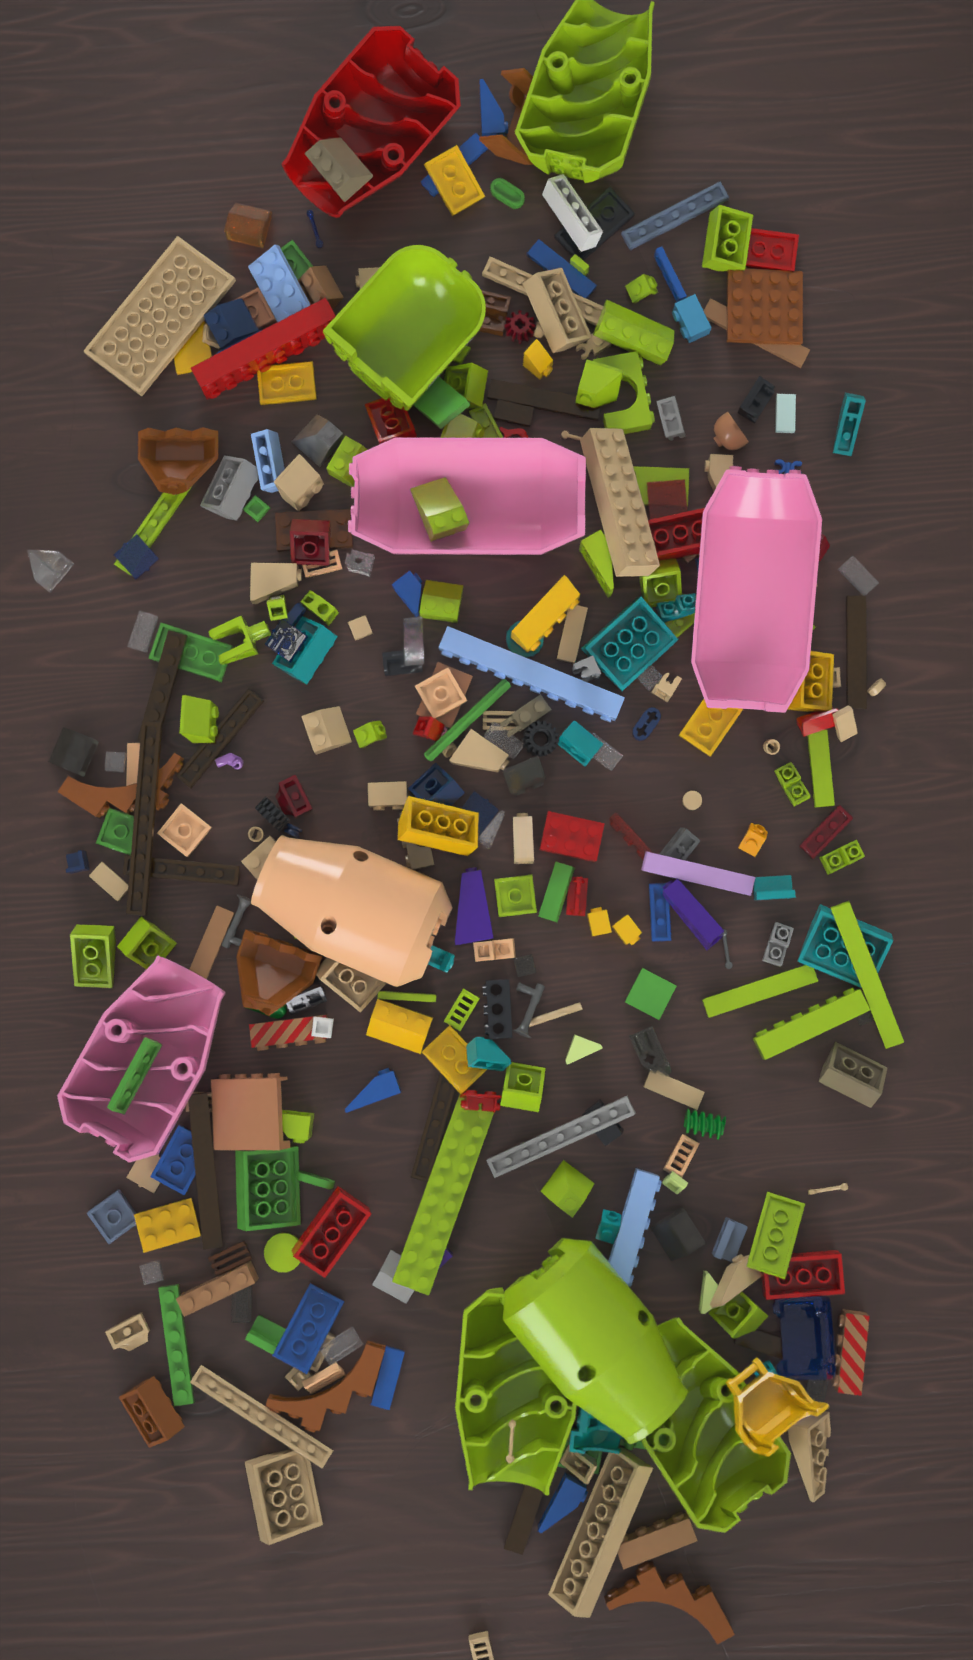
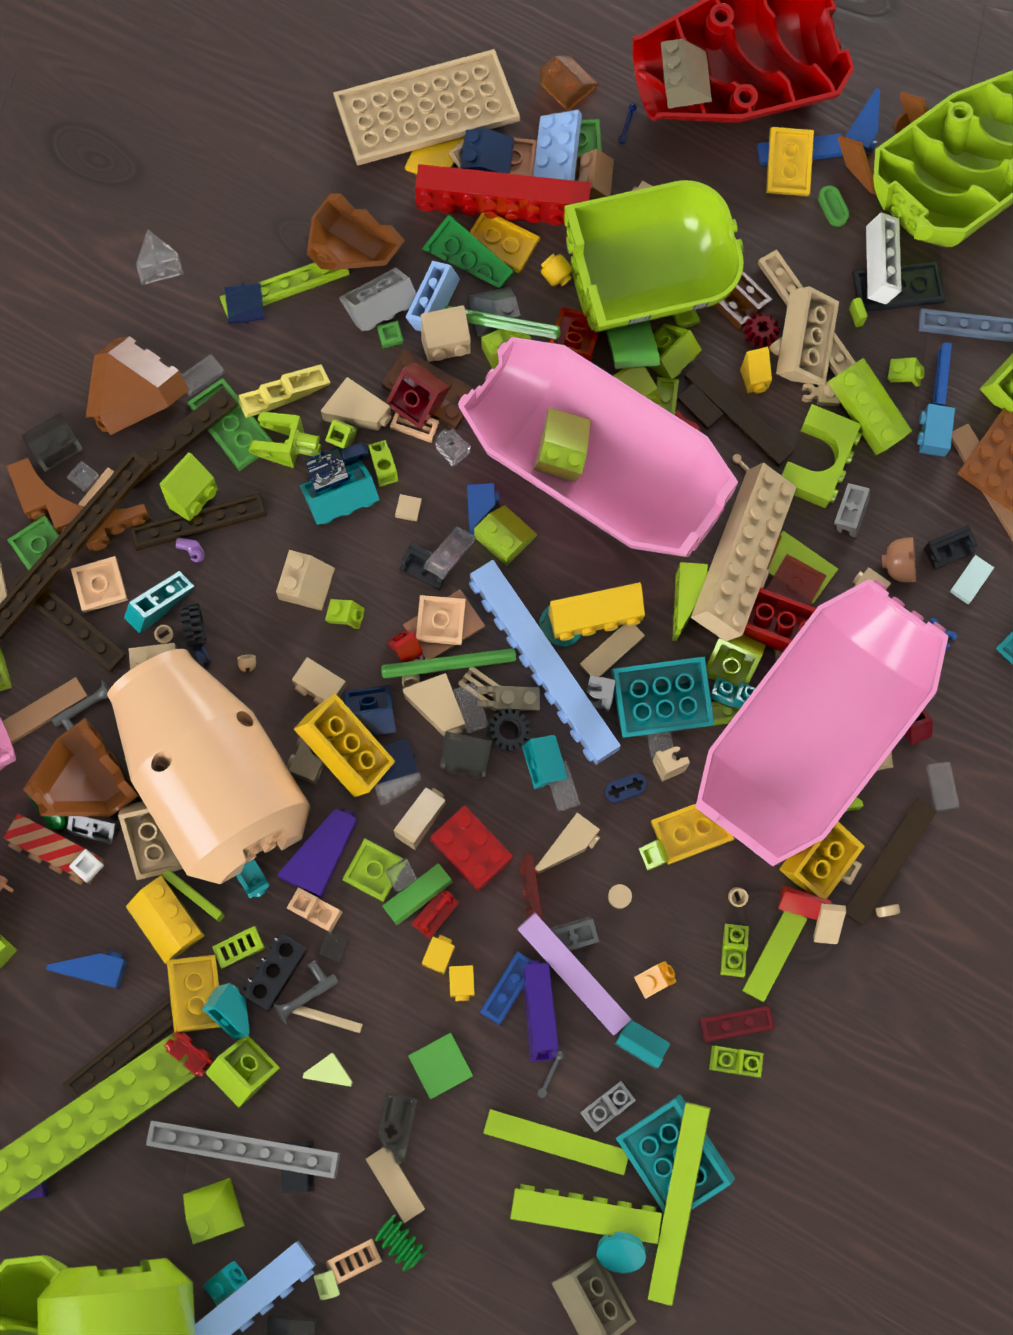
camera: 30 degrees right, 10 degrees down
(101, 674) = (130, 385): none -> dark orange panel
(211, 603) = (284, 391): none -> light yellow slope
(234, 814) = (157, 601): none -> teal slope
(270, 409) = (461, 248): none -> green wing
(293, 797) = (226, 623): dark red slope -> none
(326, 814) = (246, 661): none -> tan hinge
(339, 445) = (512, 324): none -> bright green axle
(343, 379) = (556, 270): none -> yellow head
(536, 886) = (401, 874): none -> clear tile
(550, 260) = (846, 325): blue tile -> none
(598, 384) = (800, 430): lime slope -> none
(636, 782) = (571, 842): none -> tan slope
(696, 756) = (654, 854): none -> lime tile
(850, 1031) = (621, 1252): none -> teal tile

